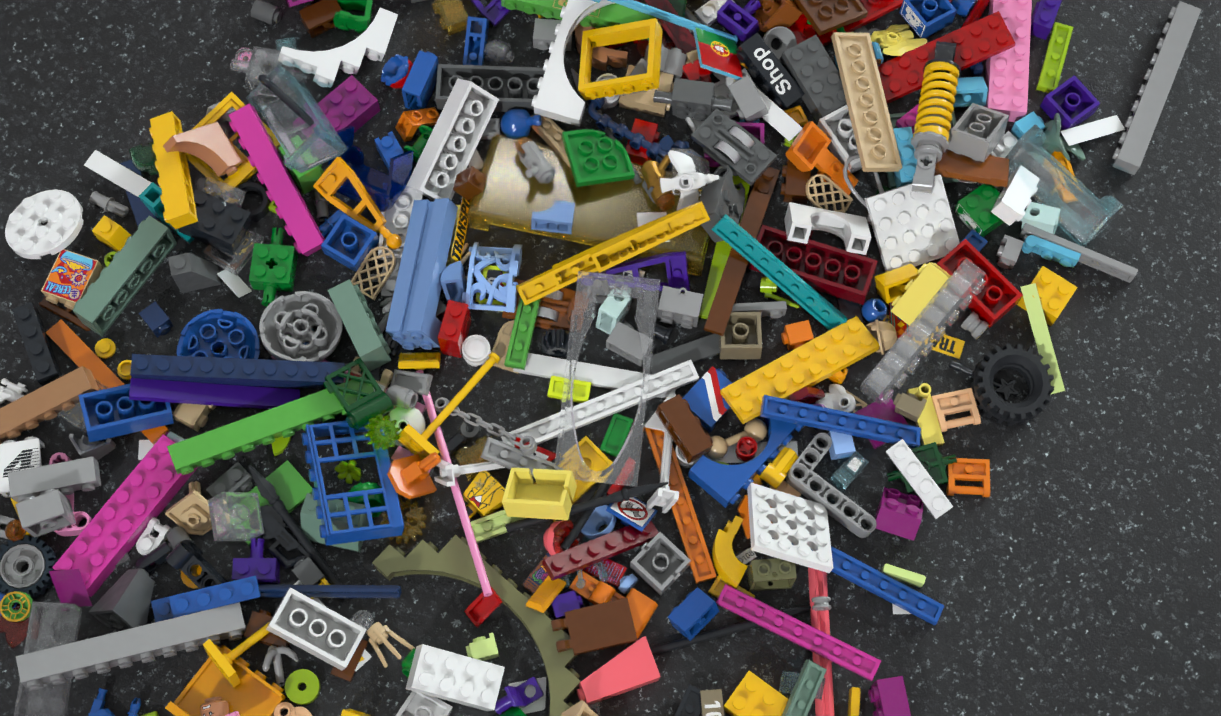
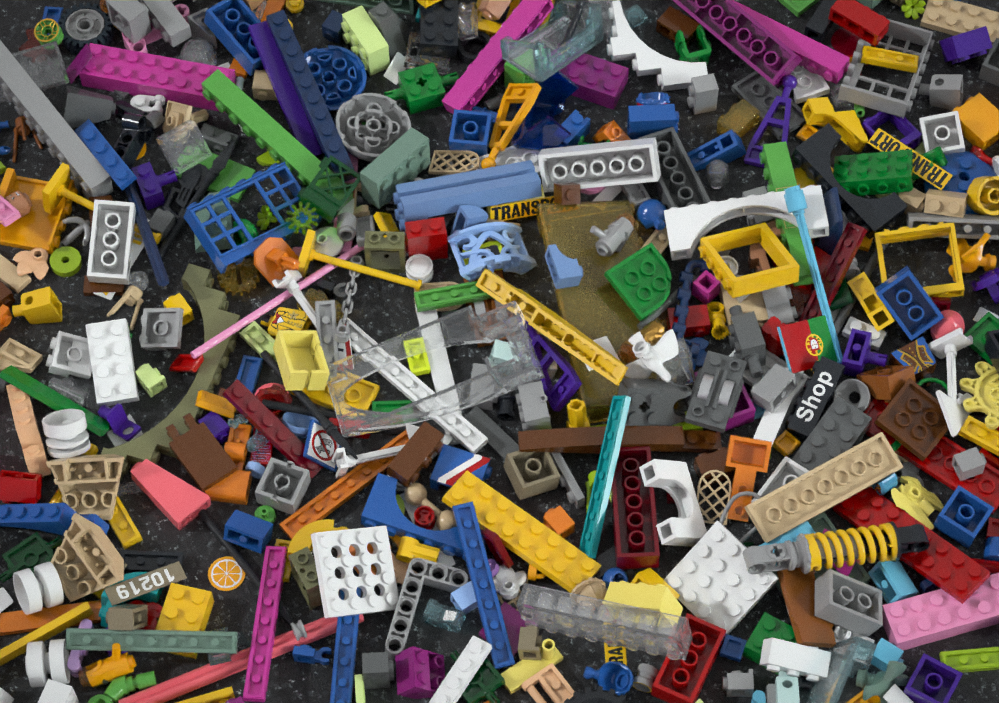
camera: 70 degrees right, 10 degrees down
(117, 464) = (199, 51): none -> clear cylinder
(117, 675) = (23, 130): none -> dark orange plant
(192, 295) = (365, 40): none -> yellowish green brick
(411, 25) = (703, 94): none -> light grey brick
(416, 593) = (179, 302): none -> yellow brick
(435, 616) = (161, 328): none -> light grey plate
(448, 377) = (385, 261): none -> olive window
(518, 553) = (250, 372): none -> blue tile
(617, 110) = (706, 287): none -> dark pink brick
(661, 119) = (717, 320): none -> yellow connector
(674, 596) = (266, 513): none -> bright green tile
(709, 274) = (577, 414): none -> yellow piece
(722, 653) = (225, 574): none -> light orange sticker
(839, 607) = (309, 655): none -> blue plate
(886, 548) = (377, 670): none -> dark grey brick
(968, 351) = (613, 676): none -> blue hair

